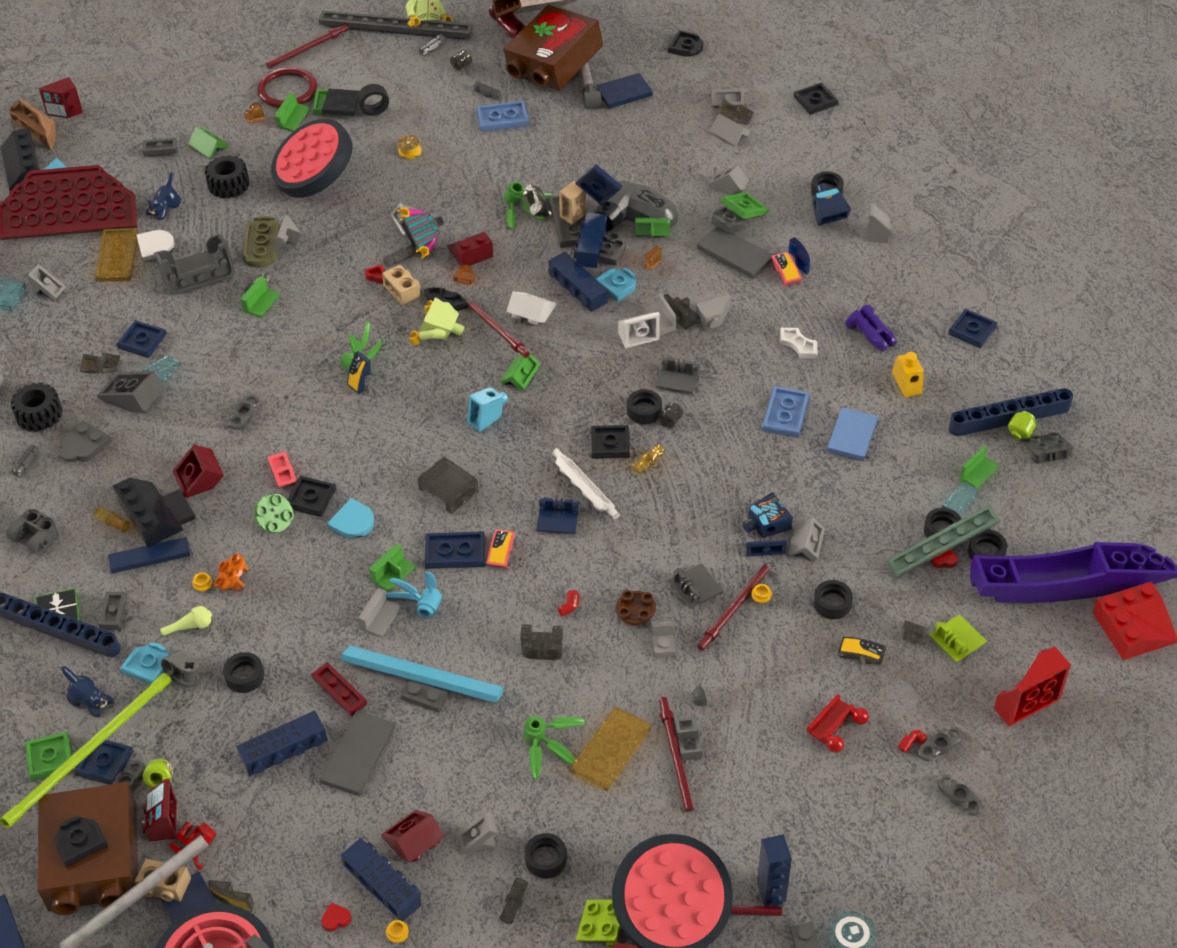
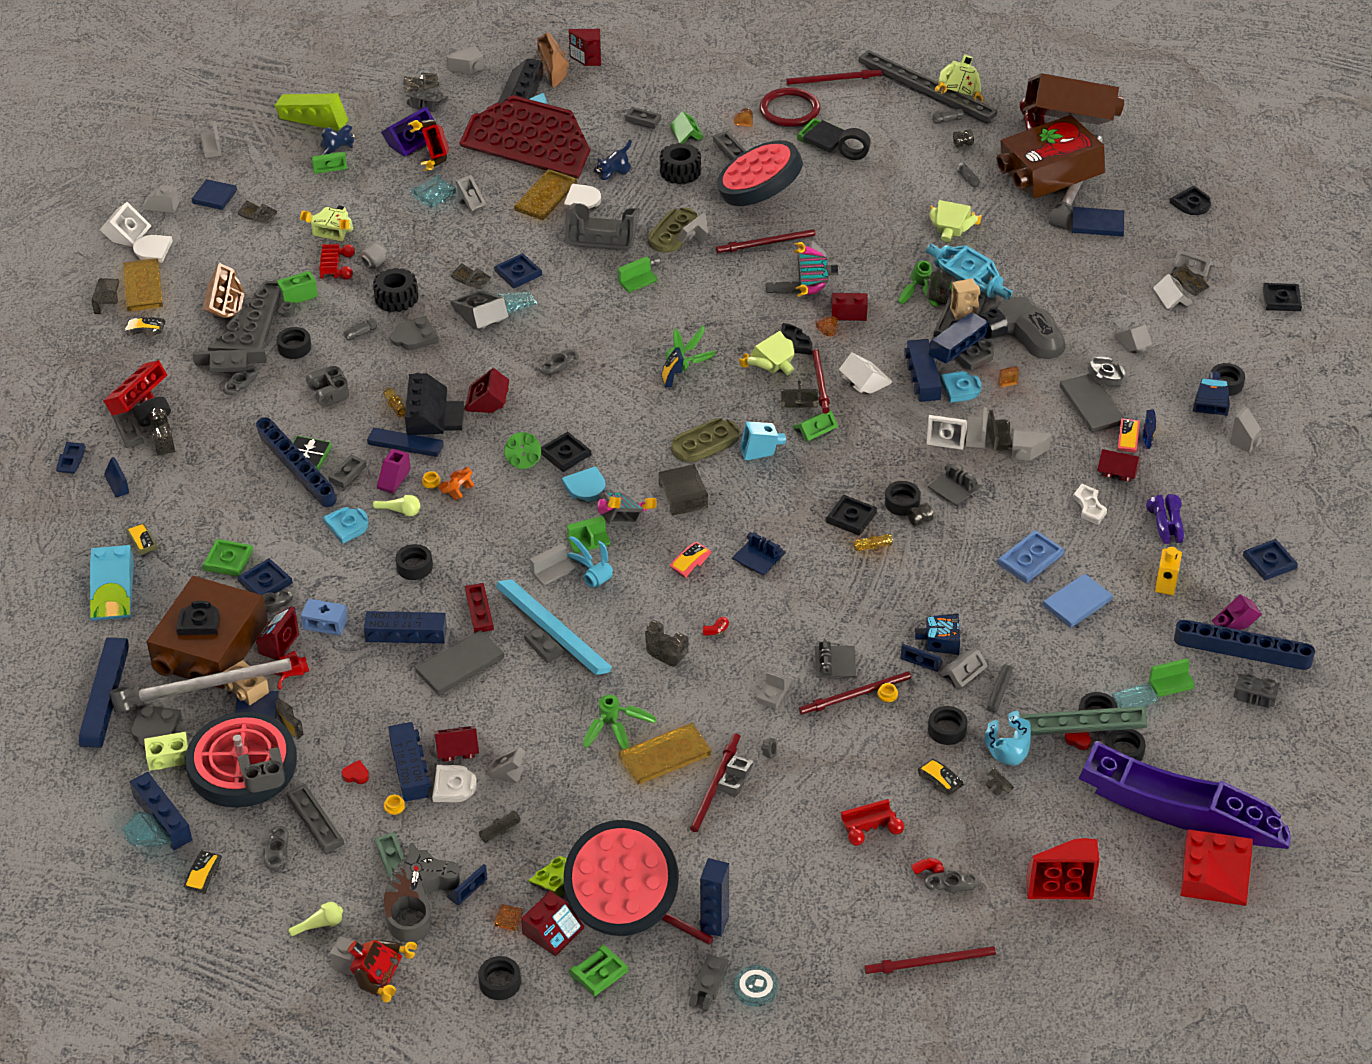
camera: 30 degrees right, 5 degrees down
(18, 810) = (168, 577): lime piece -> none
(84, 691) = (284, 522): dark blue animal -> none
(157, 771) = (296, 600): lime head -> none
(161, 590) = (393, 470): none -> magenta slope
(181, 668) = (367, 537): dark grey piece -> none
(193, 771) = (324, 617): none -> medium blue brick
(259, 143) = (728, 144): none -> dark grey plate
(282, 469) = (556, 420): coral slope -> none
(290, 113) = (774, 128): bright green panel -> none
(329, 235) = (734, 246): none -> dark red bar
(375, 274) = (751, 294): red tile -> none
(401, 284) = (765, 311): tan brick -> none
(406, 529) = (620, 509): none -> torso
(409, 146) = (859, 197): yellow wheel -> none
(431, 428) = (705, 440): none -> olive tile
(437, 879) = (453, 783): none -> white tile
(455, 550) = (652, 544): dark blue tile -> none
(488, 352) = (799, 398): none -> clear smoke panel
(502, 116) = (979, 202): medium blue tile -> none
(504, 135) = (952, 219): none -> yellowish green torso
(541, 840) = (549, 818): black tyre -> none
(548, 171) = (970, 264): none -> medium azure plate
(588, 488) = (800, 538): white plate -> none
(598, 184) = (989, 288): dark blue tile -> none
(635, 607) = (769, 654): reddish brown dish -> none
(652, 226) = (1028, 349): bright green panel -> none
(744, 205) = (1131, 365): bright green tile -> none
(799, 297) = (1118, 464): none -> dark red slope
(849, 544) = (999, 688): none -> dark grey axle
(906, 594) = (1009, 750): none -> medium azure piece
(948, 852) = (888, 966): none -> dark red bar
(957, 638) = (1036, 806): lime hinge -> none
(969, 799) = (941, 935): dark grey piece -> none
(987, 388) = (1238, 614): none -> magenta slope
(1022, 425) = (1243, 659): lime head -> none

